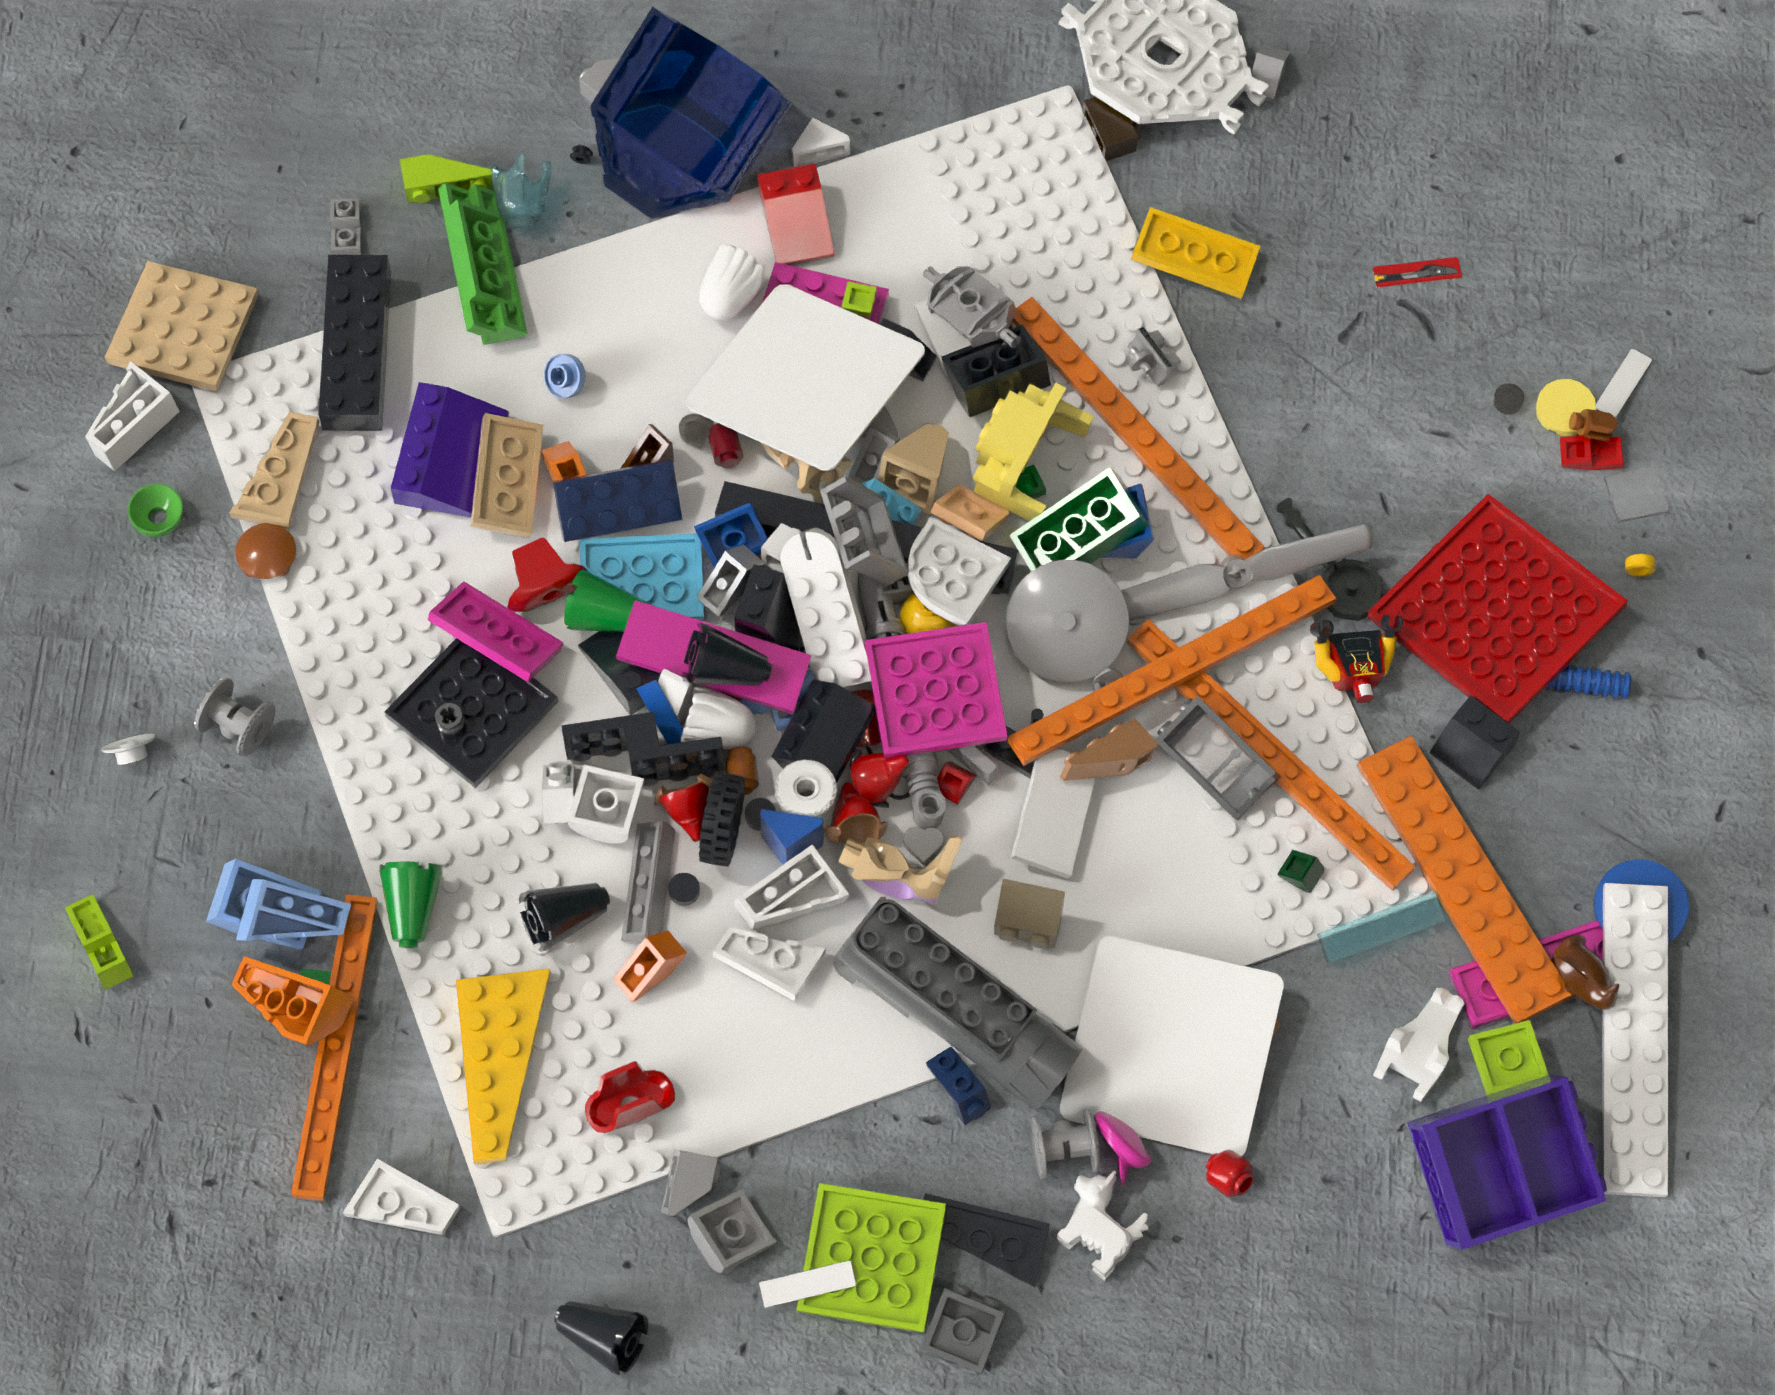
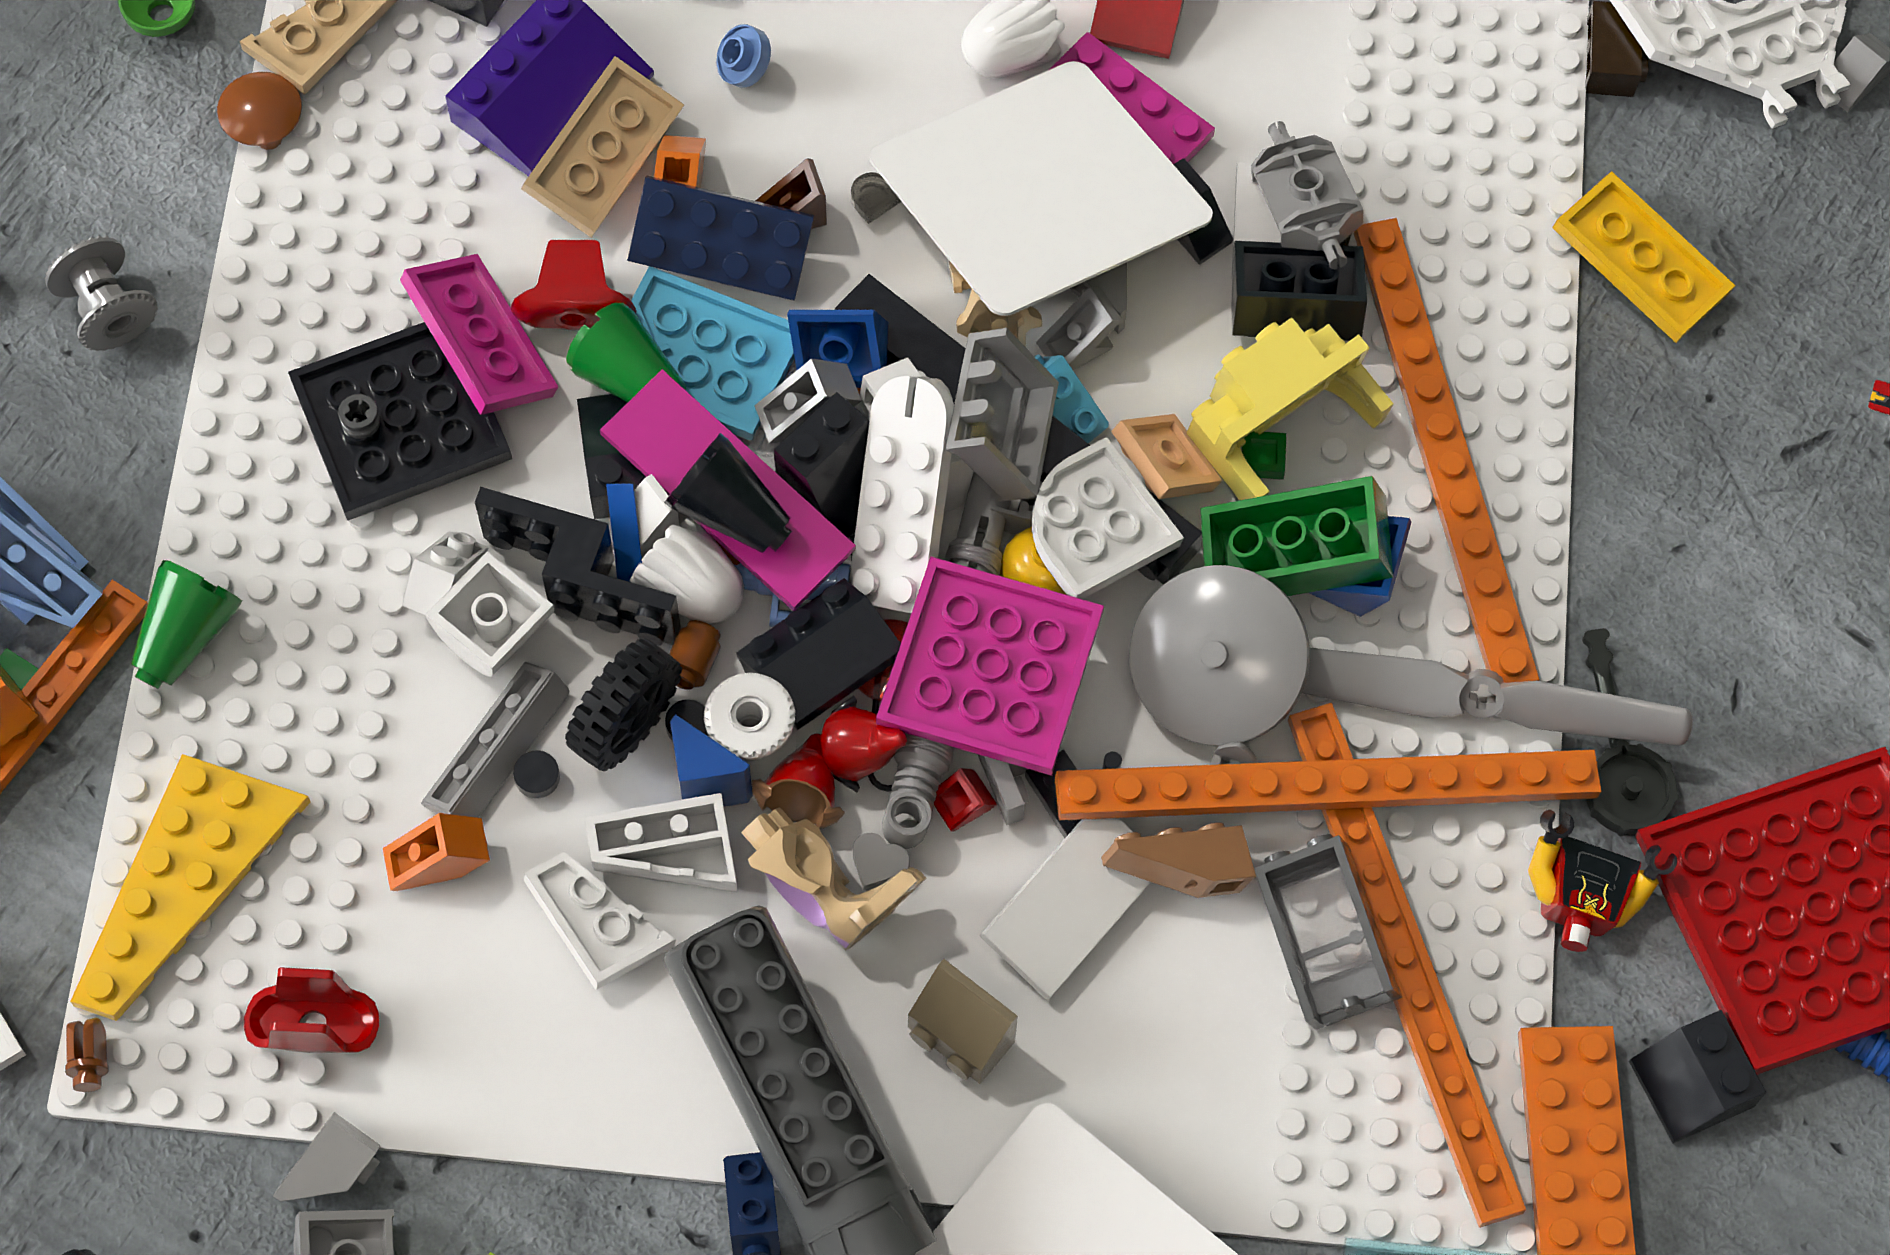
camera: 25 degrees right, 0 degrees up
(509, 1197) = (86, 1054): none -> dark orange arm
(561, 911) = (362, 729): black cone -> none
(686, 805) = (587, 657): red hat -> none
(725, 446) = (897, 233): dark red brick -> none
(859, 299) = (1166, 121): lime plate -> none
(915, 465) = (1129, 363): tan slope -> none
(1150, 358) = (1510, 359): light grey hips -> none
(1301, 870) = (1368, 1140): dark green slope -> none

